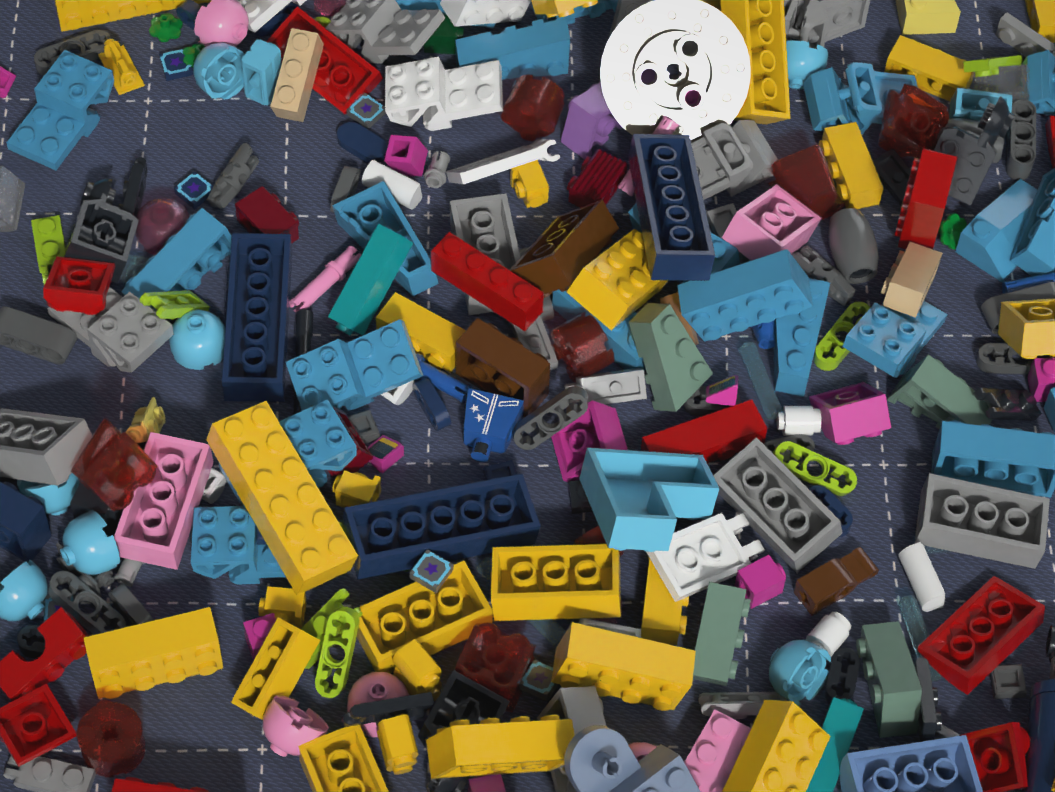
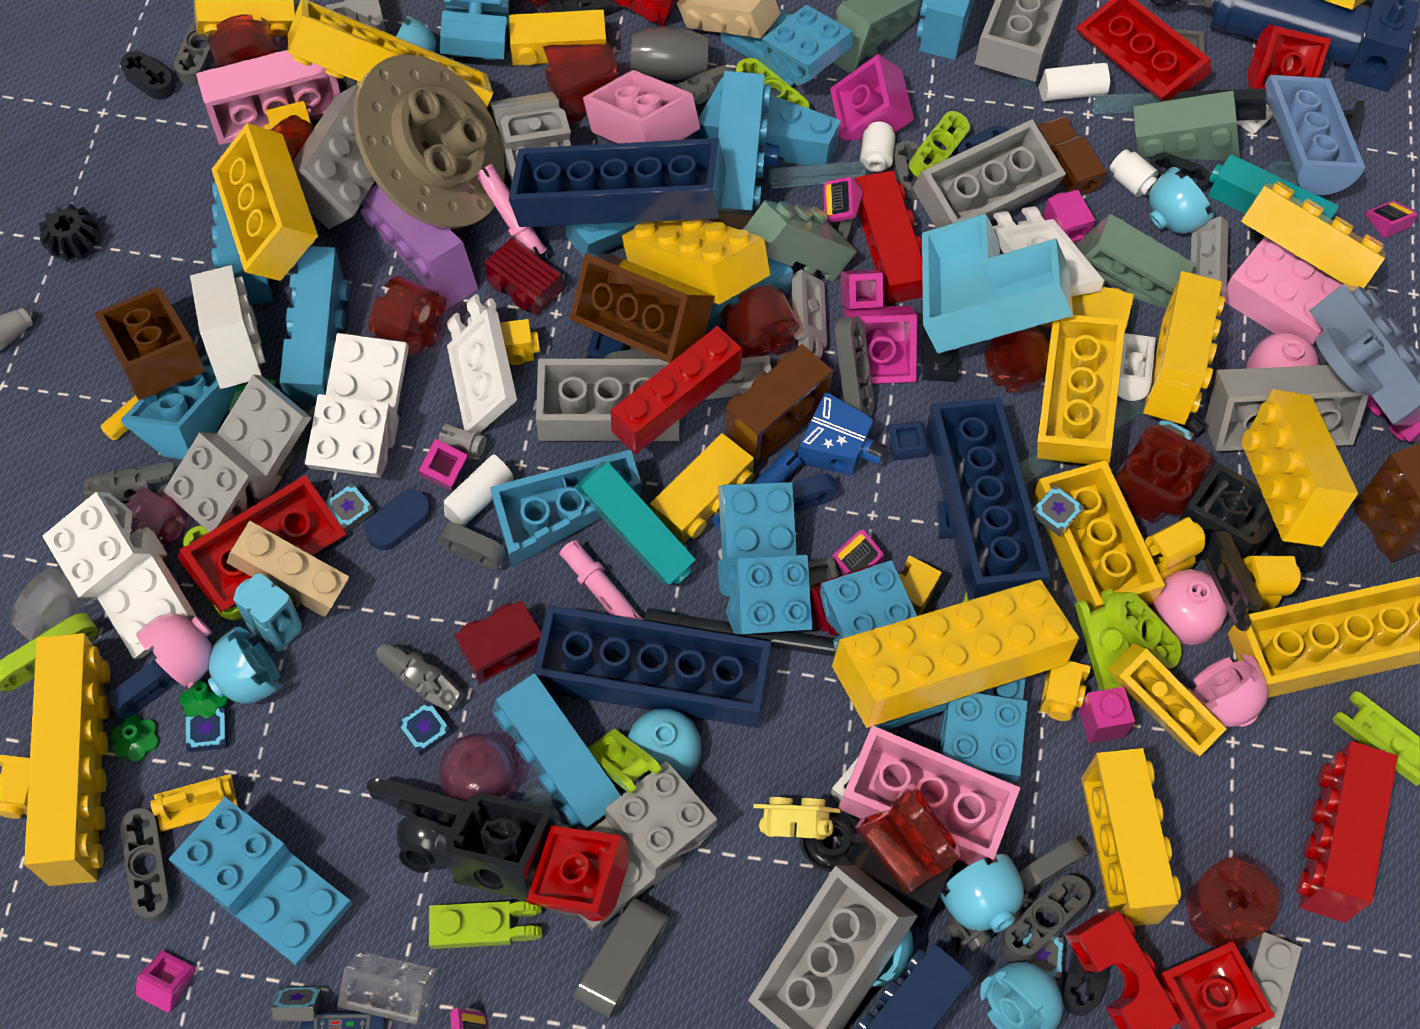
camera: 80 degrees left, 5 degrees up
(636, 419) = (862, 289): none -> dark pink brick

